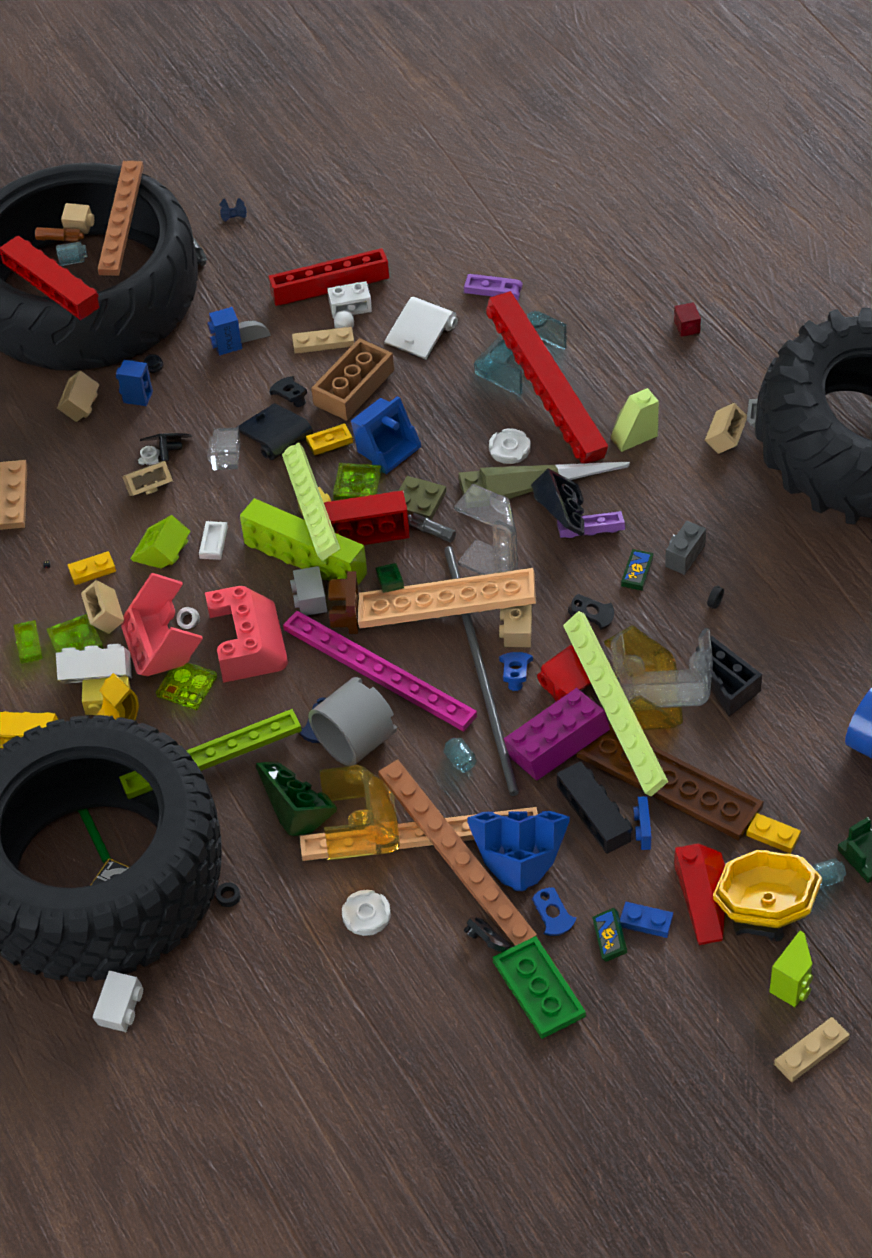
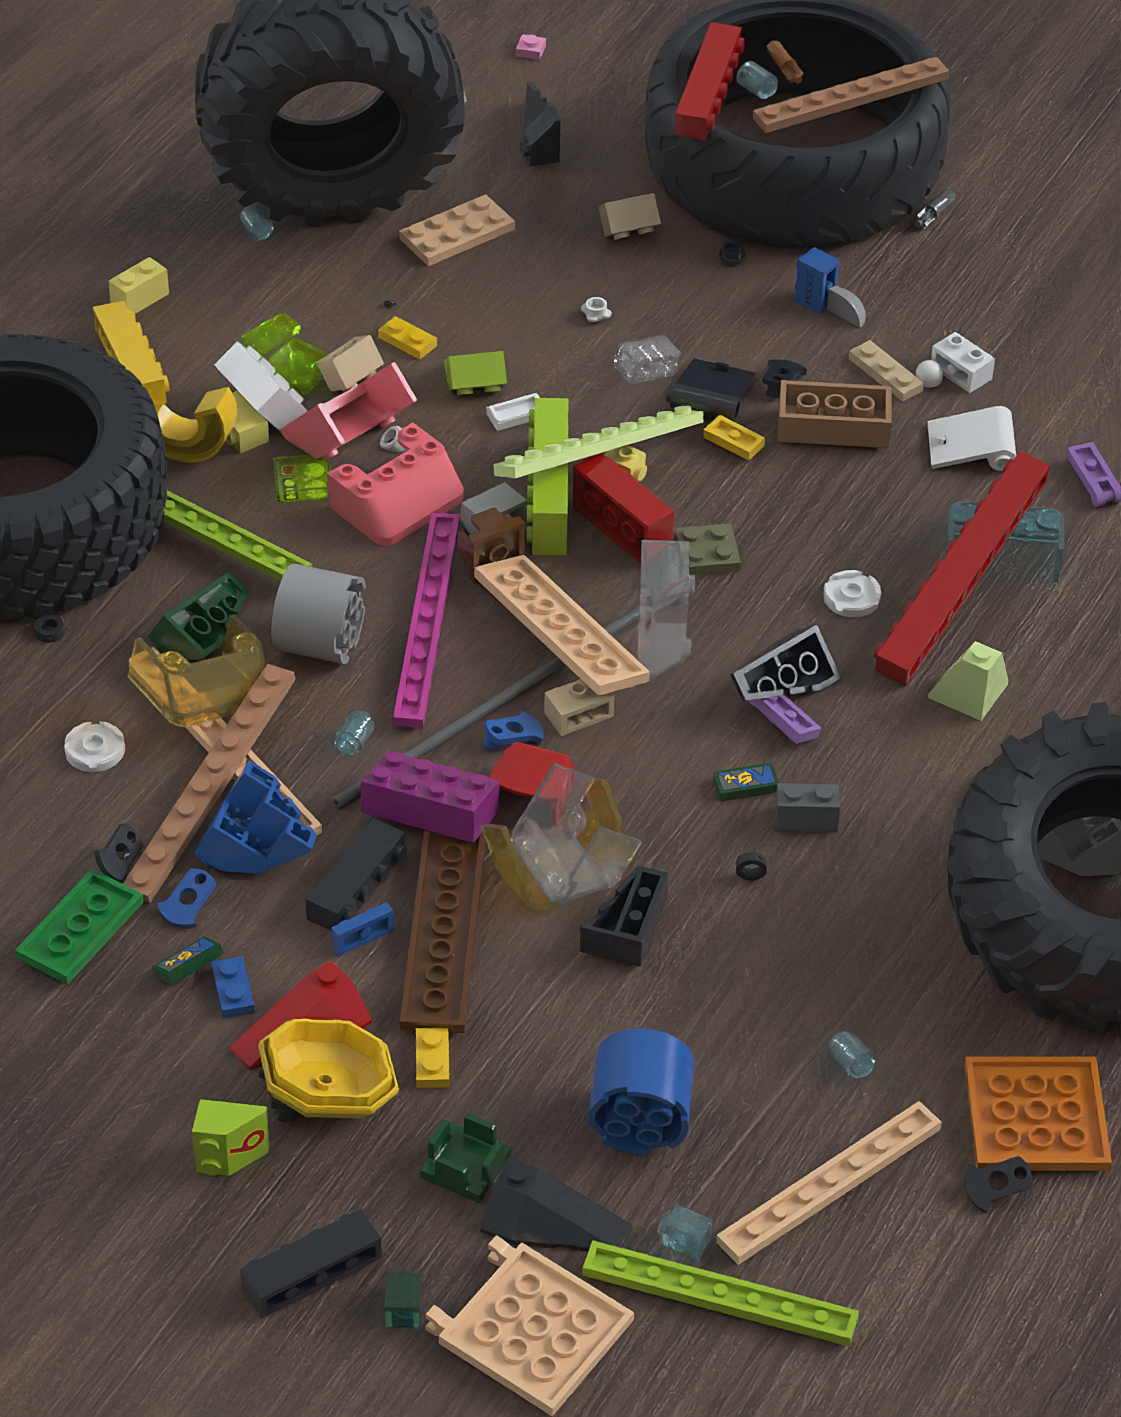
camera: 55 degrees right, 5 degrees down
(77, 217) = (816, 62): tan brick -> none
(134, 382) = (680, 246): blue brick -> none
(147, 479) = (554, 318): tan brick -> none
(164, 445) = (616, 313): black shield -> none
(227, 213) = (1013, 208): dark blue piece -> none
(315, 279) = (995, 335): red brick -> none
(356, 480) = (687, 486): clear neon green plate -> none
(385, 434) = (764, 472): blue piece -> none
(389, 577) = (563, 569): dark green tile -> none
(518, 479) = (785, 608): olive plate -> none
(605, 611) = (653, 779): black piece -> none
(615, 704) = (485, 818): yellowish green plate -> none
(811, 1049) = (142, 1206): tan plate -> none
(830, 871) = (399, 1125): clear light blue brick -> none

